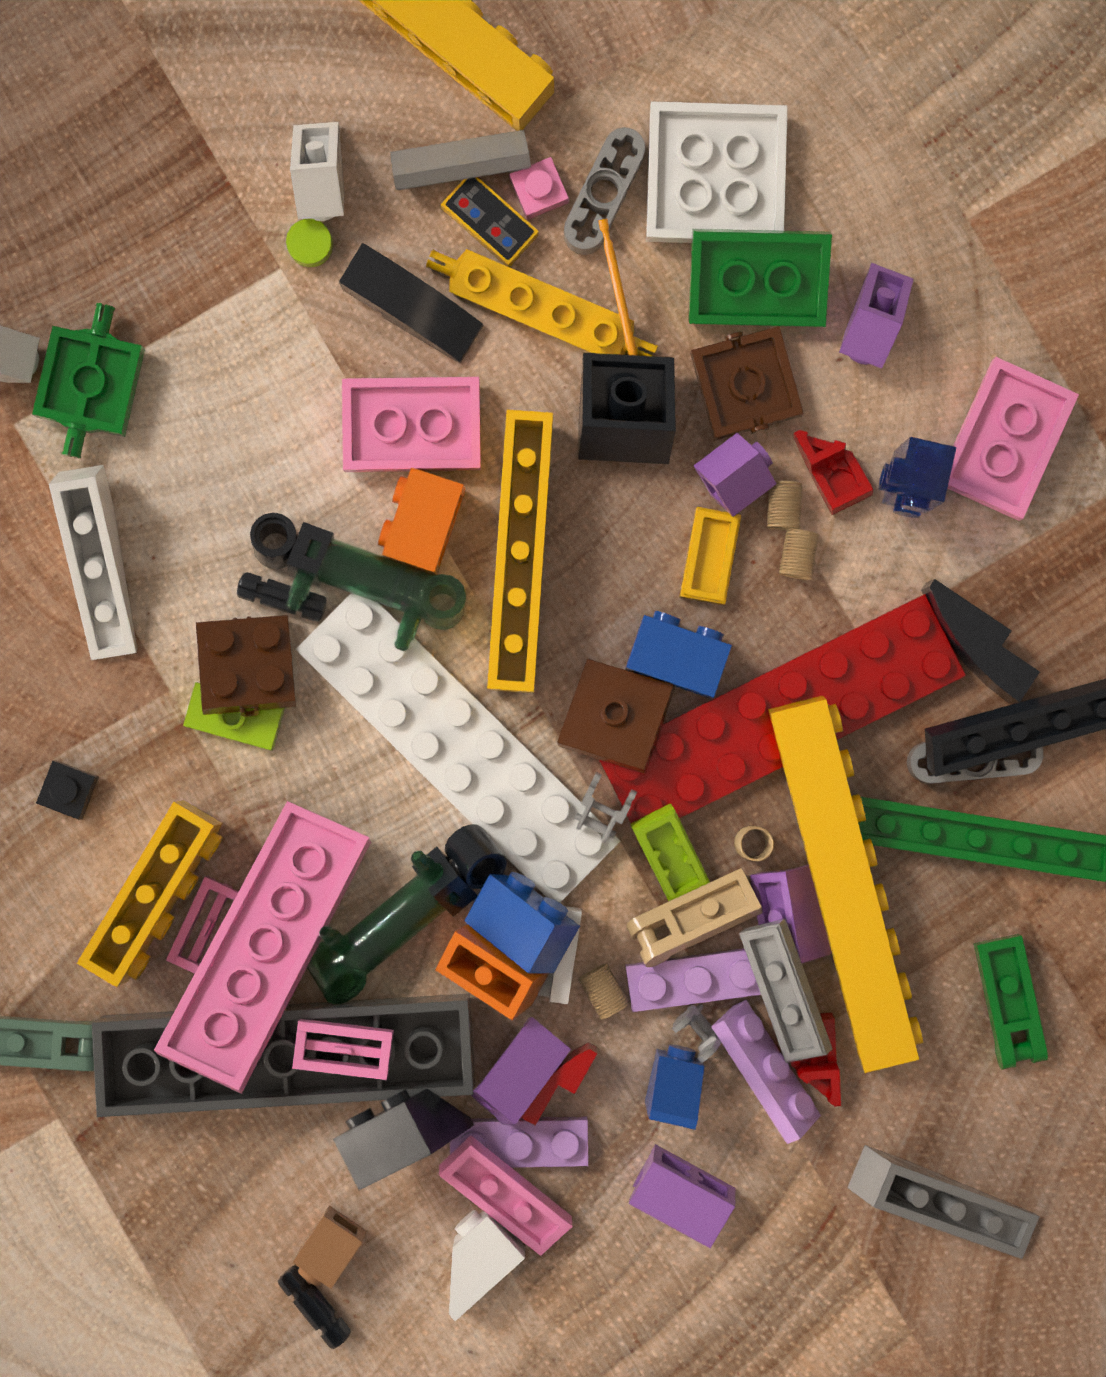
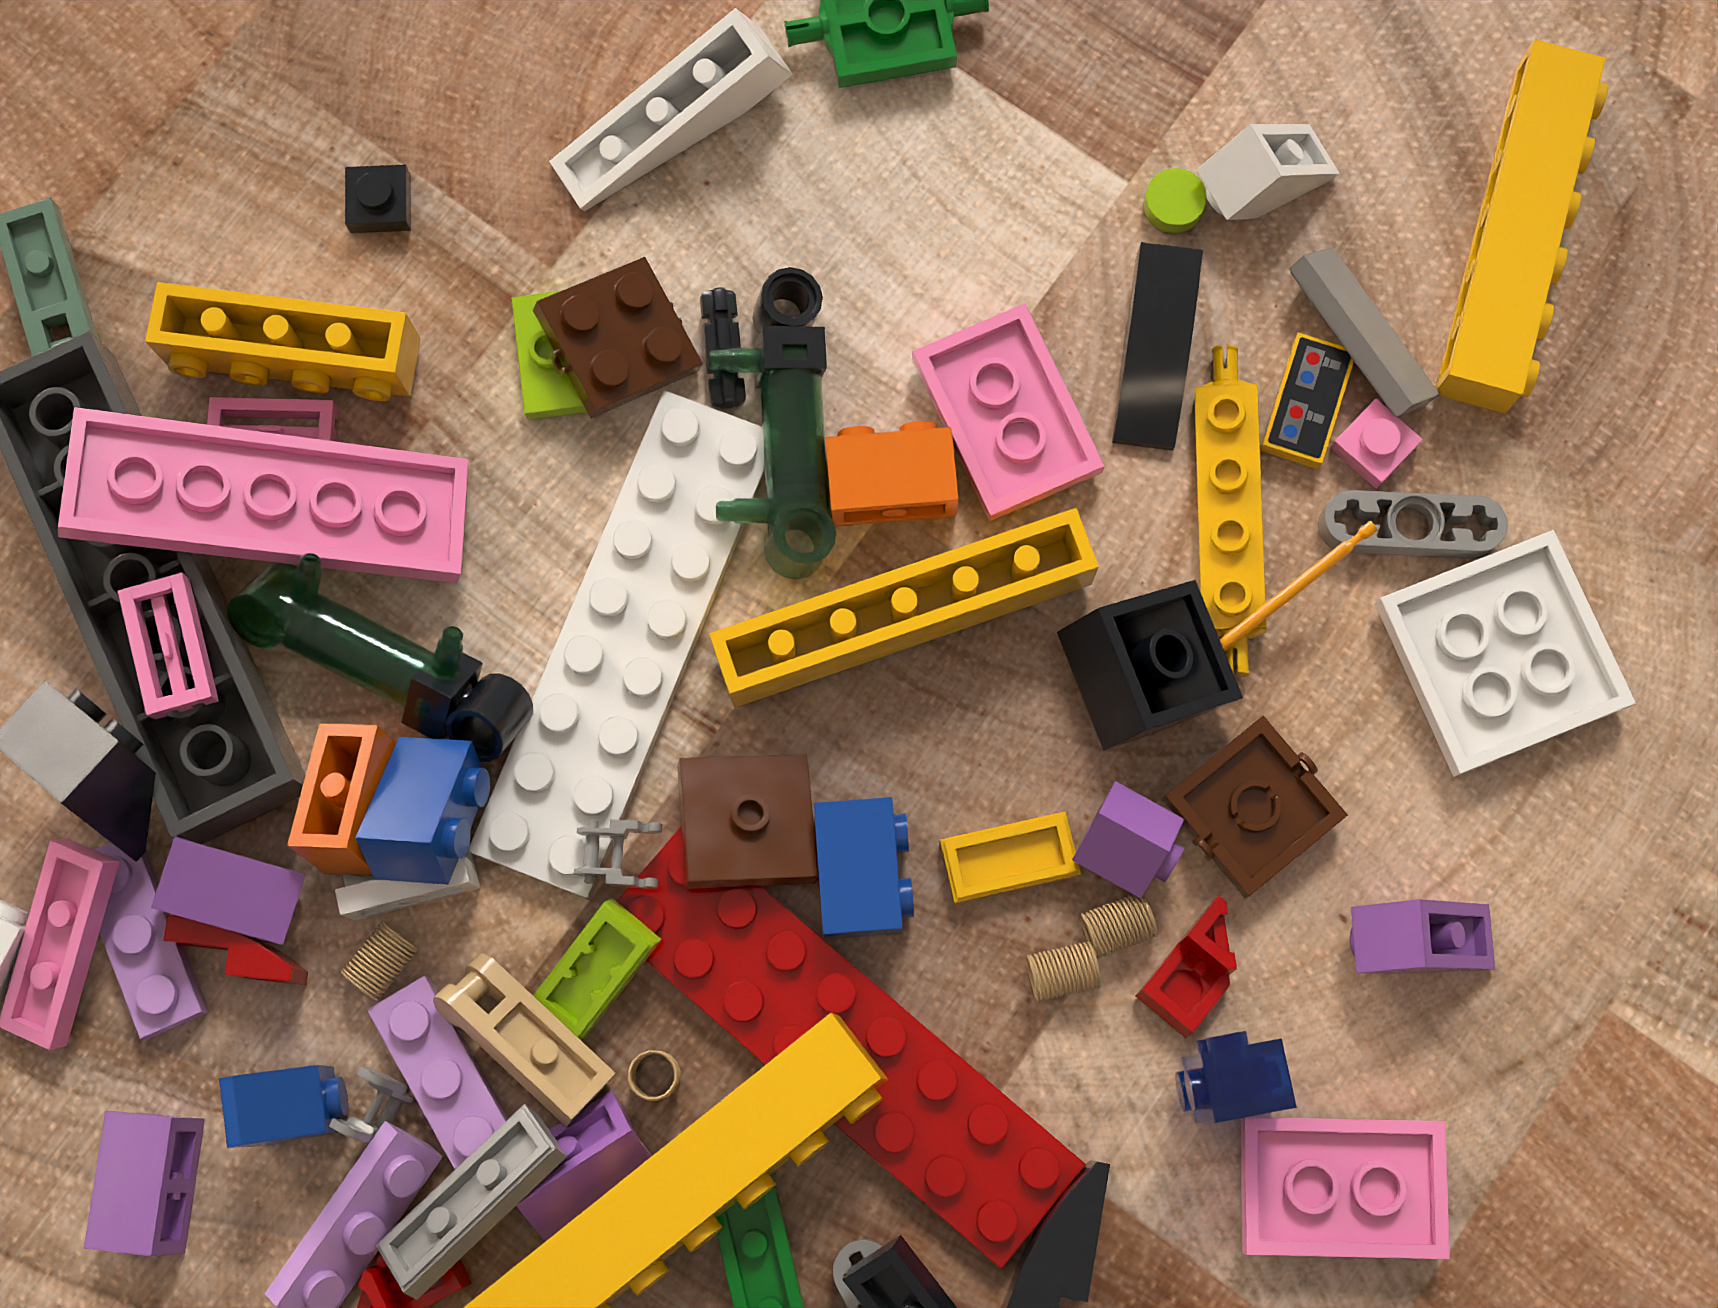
camera: 70 degrees right, 10 degrees down
(759, 277) = (1397, 761): green plate -> none

